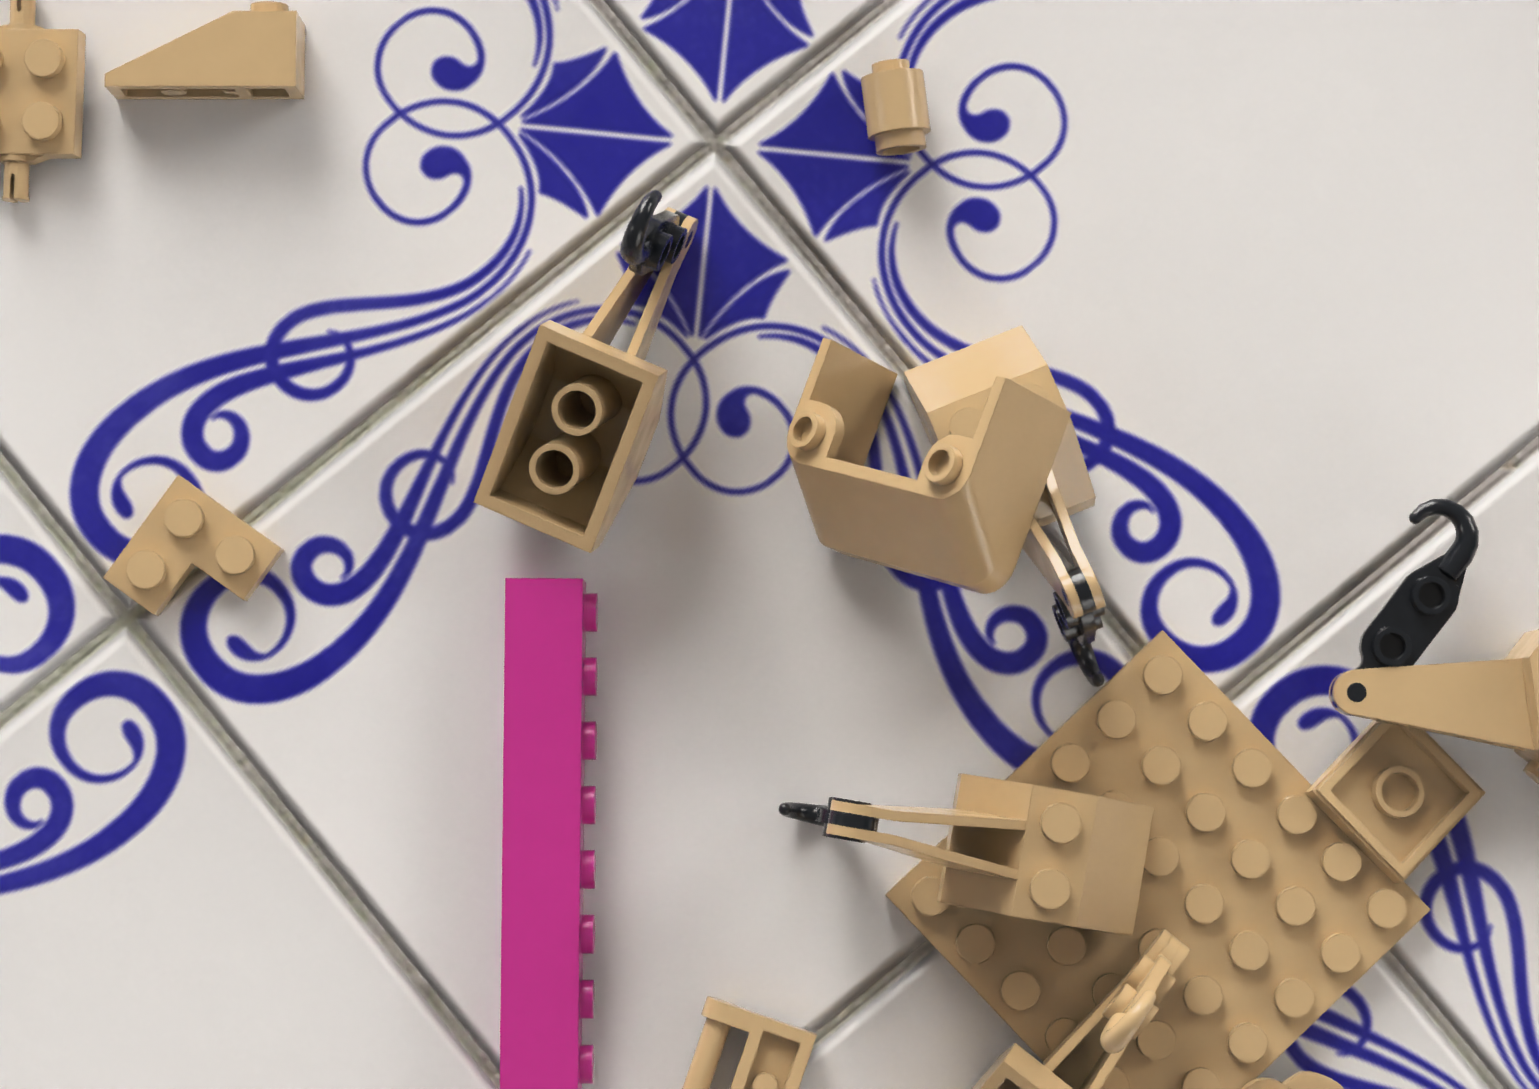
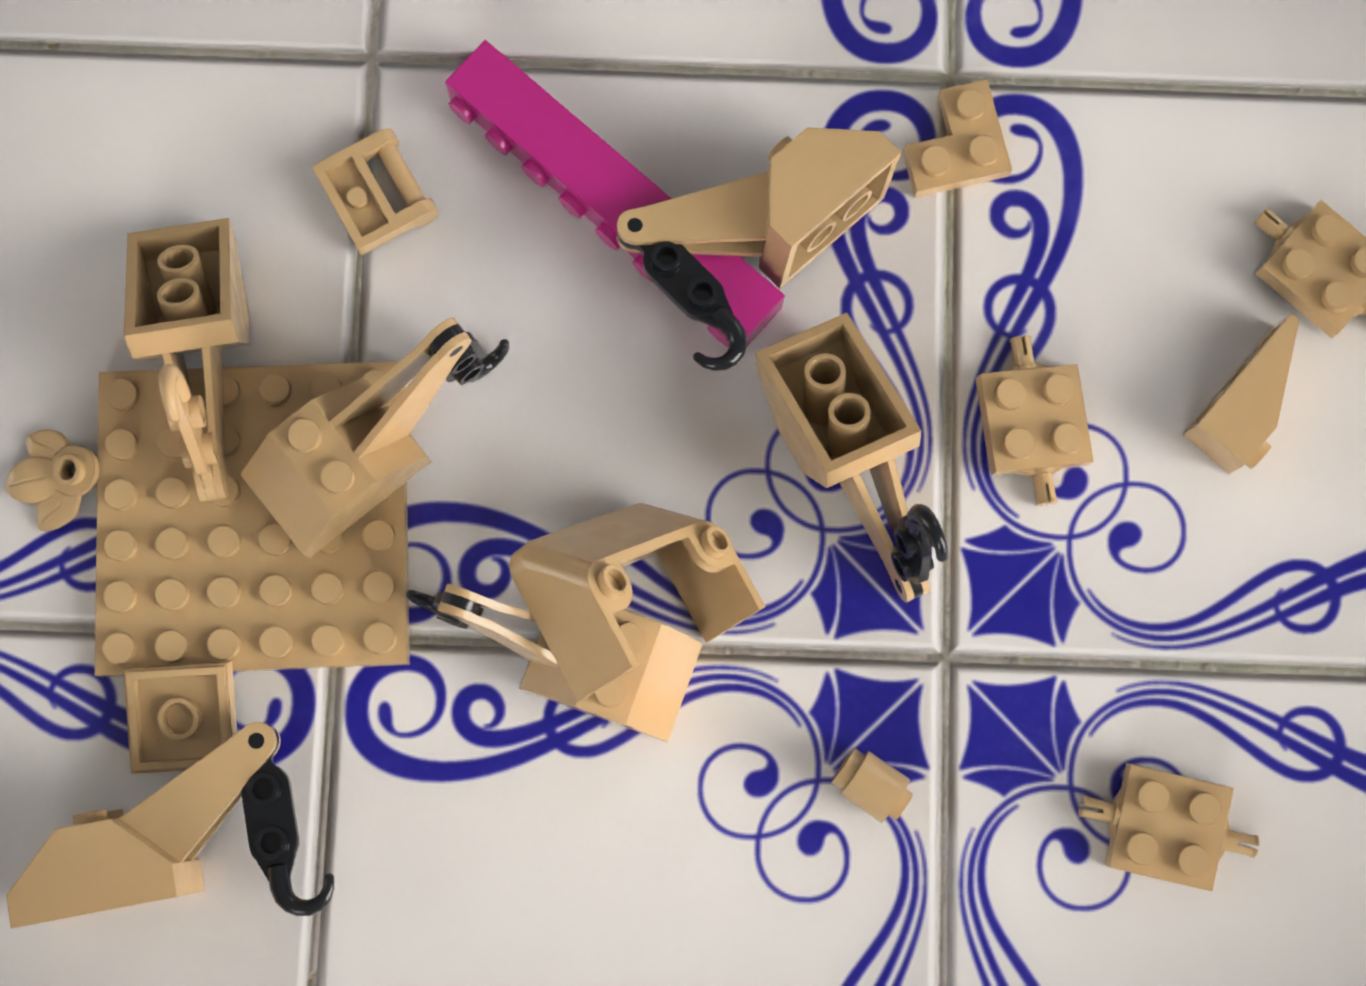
camera: 125 degrees right, 5 degrees down
(415, 247) = (1034, 420): none -> tan plate
(440, 654) = (783, 216): none -> tan slope

